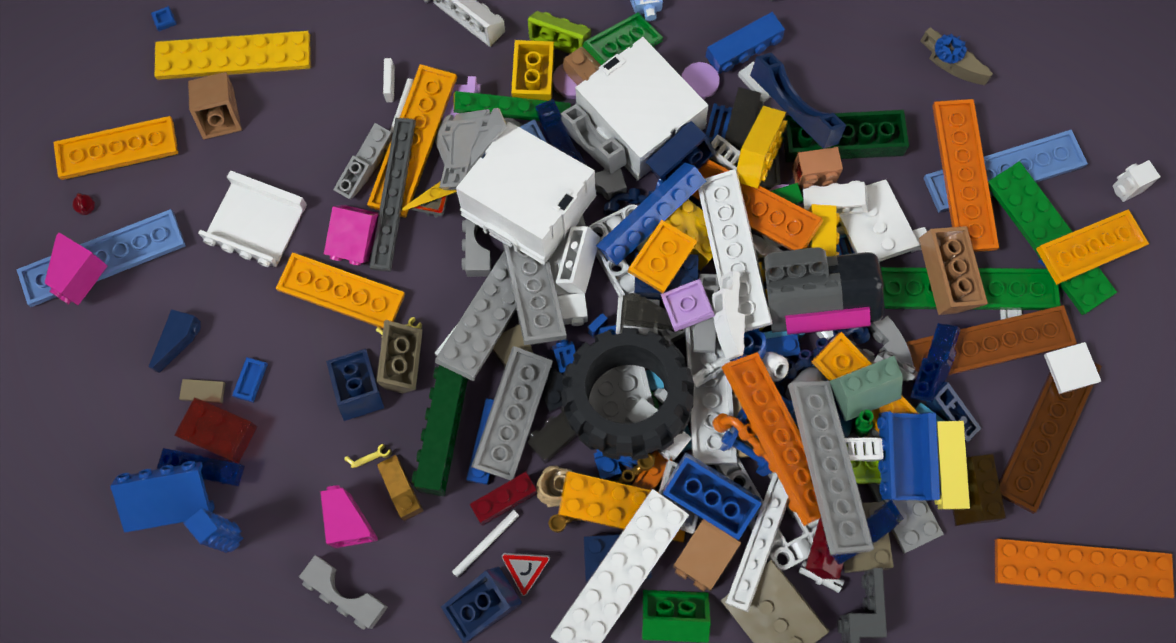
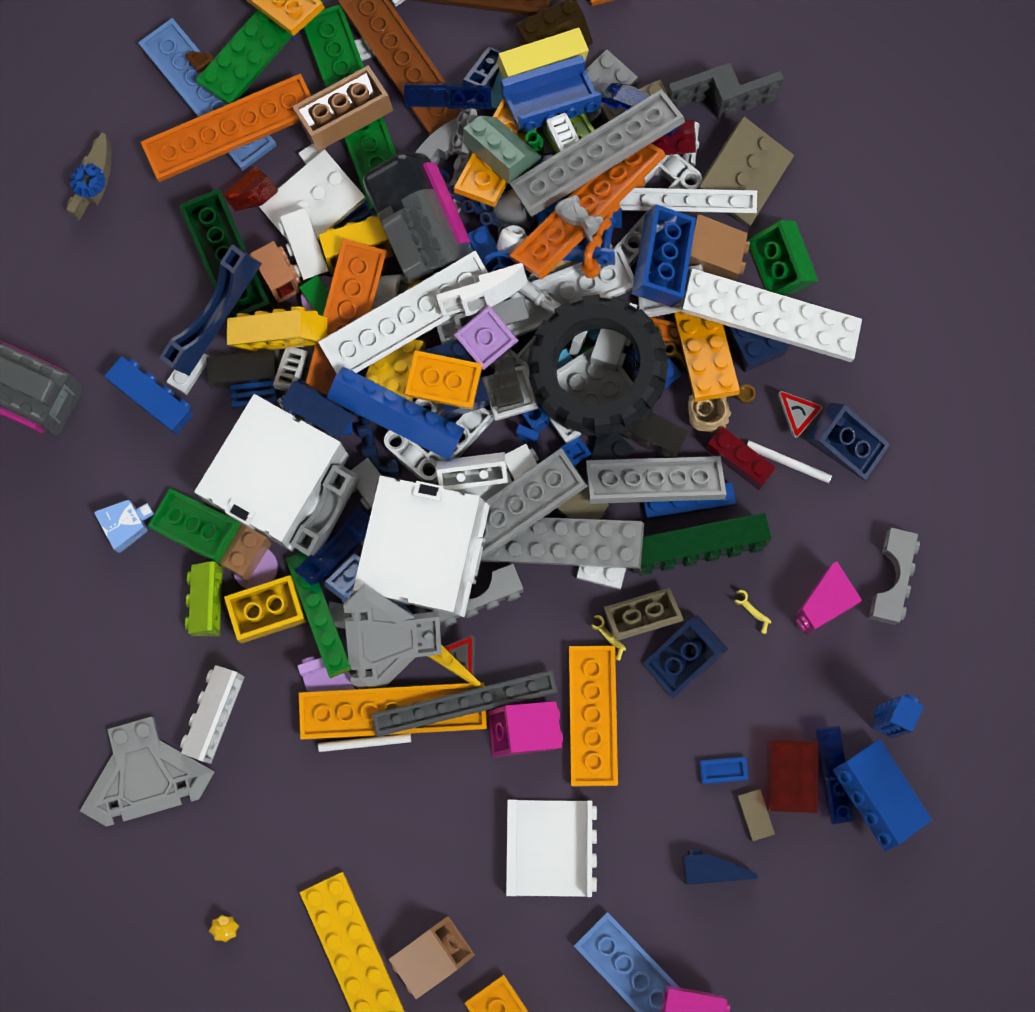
camera: 110 degrees left, 5 degrees up
(364, 164) = (438, 753): light grey slope -> none
(388, 84) = (329, 769): white tile -> none
(399, 488) = (770, 565): pearl gold slope -> none
(702, 79) = (208, 430): lavender tile -> none
(772, 415) = (574, 214): none -> light grey animal
(901, 176) = (251, 191): none -> clear red slope
(1038, 171) = (199, 60): none -> reddish brown tile

